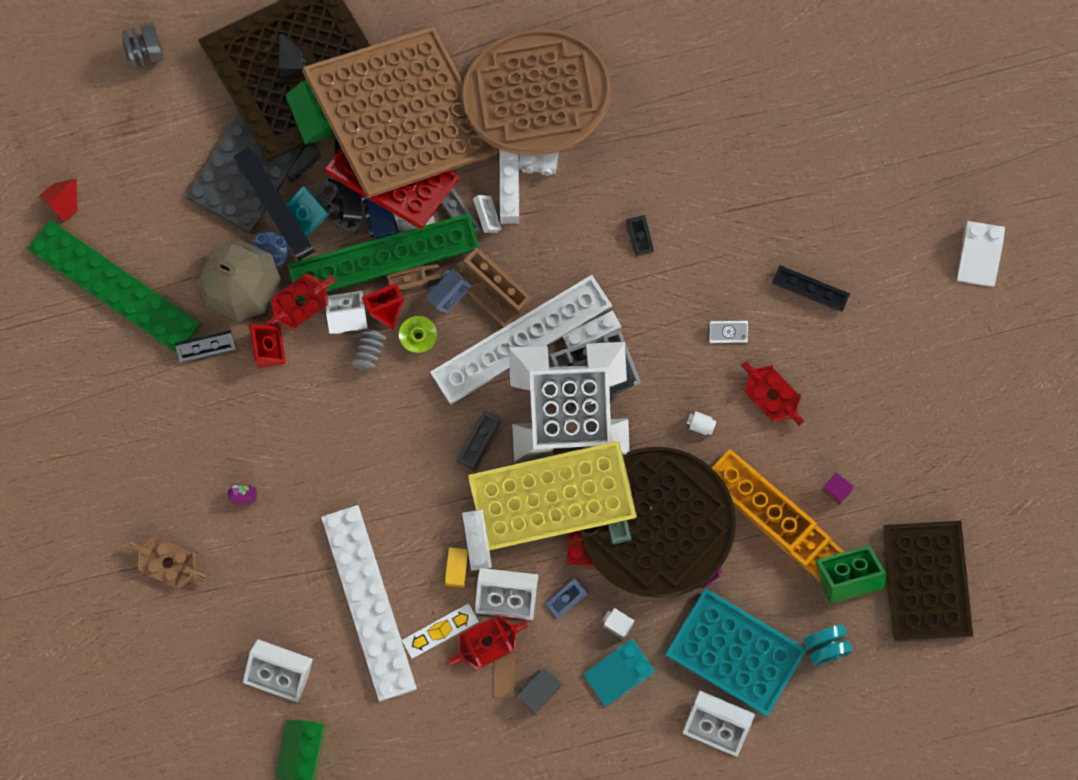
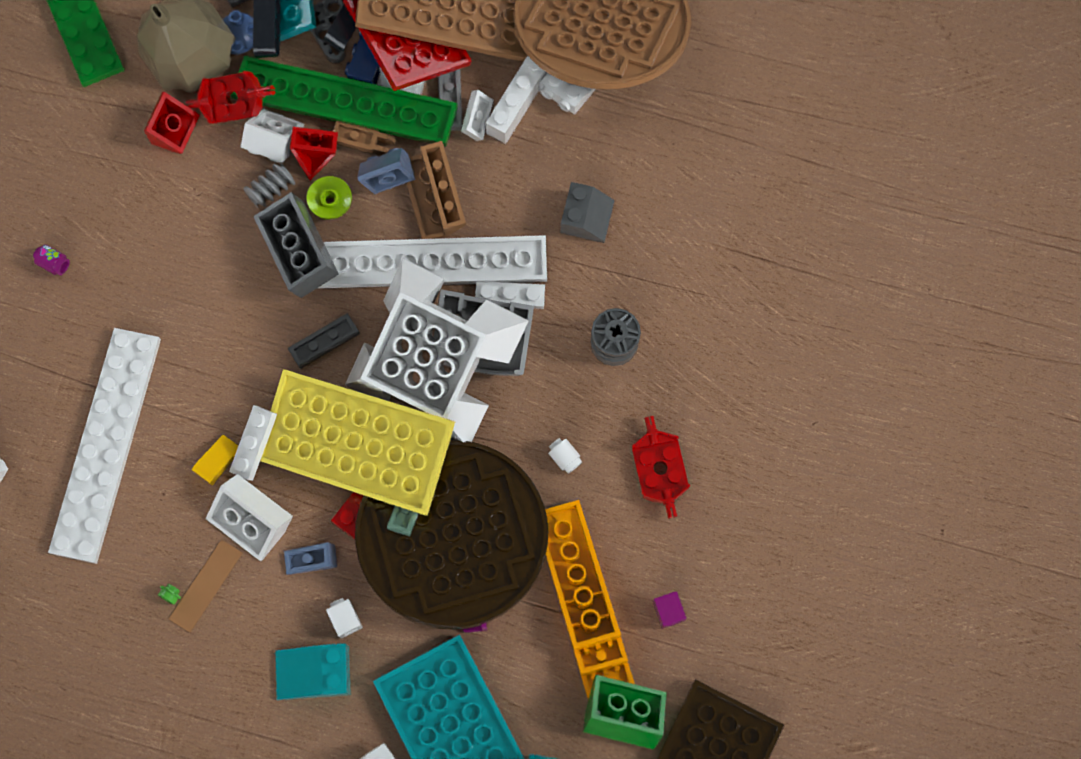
camera: 30 degrees right, 0 degrees up
(205, 346) = (112, 91): plate -> none
(419, 382) = (296, 245): none -> dark grey brick
(440, 631) = (159, 516): sticker -> none
(477, 655) = (216, 560): red plate -> none
(484, 678) = (169, 594): none -> bright green plate
(538, 690) = (216, 640): dark grey brick -> none
(610, 242) = (586, 213): none -> dark grey slope
(640, 235) = (622, 223): pearl dark grey slope -> none
(682, 329) = (617, 349): none -> dark grey wheel
(728, 332) = (653, 375): slope -> none
(811, 288) = (770, 379): black plate -> none
(980, 253) = (979, 444): white slope -> none

